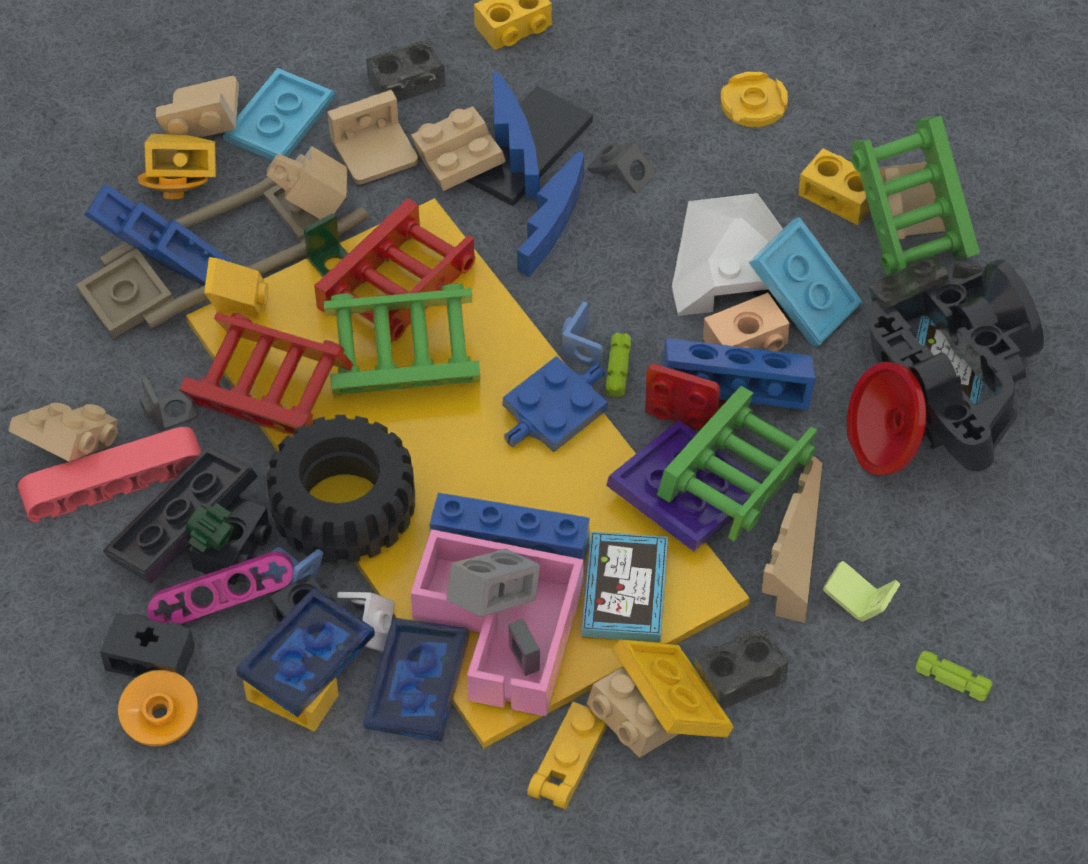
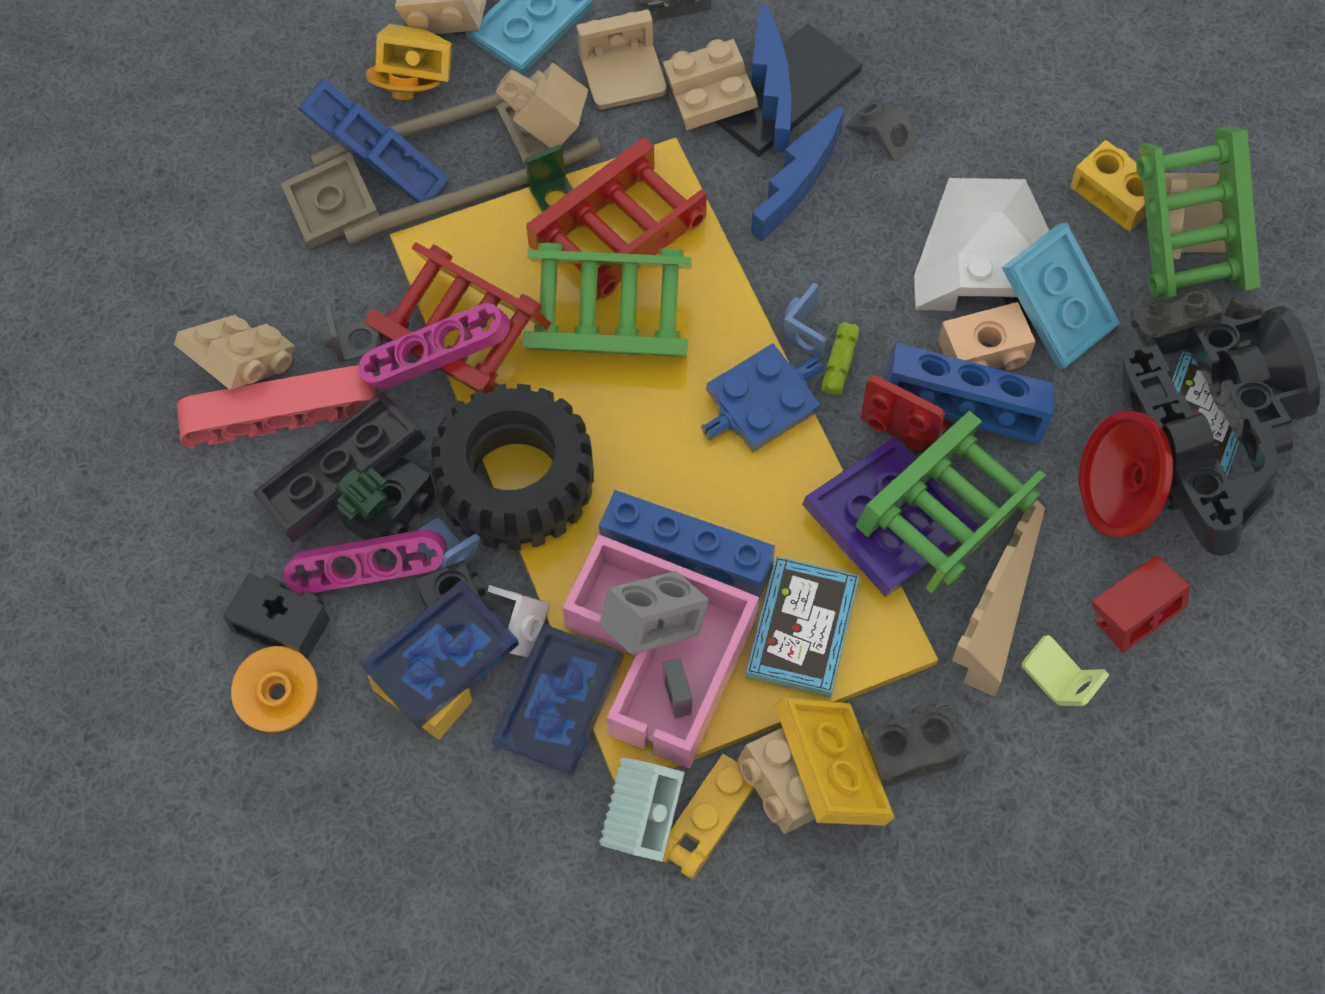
camera: 10 degrees right, 10 degrees up
(235, 287) = (440, 214): yellow slope -> none
(253, 402) = (434, 353): none -> dark pink beam
(510, 751) = (642, 809): none -> light aqua brick
(761, 106) = (1036, 79): yellow tile -> none
(919, 526) = (1141, 603): none -> red hinge
(953, 675) = (1151, 790): lime axle -> none

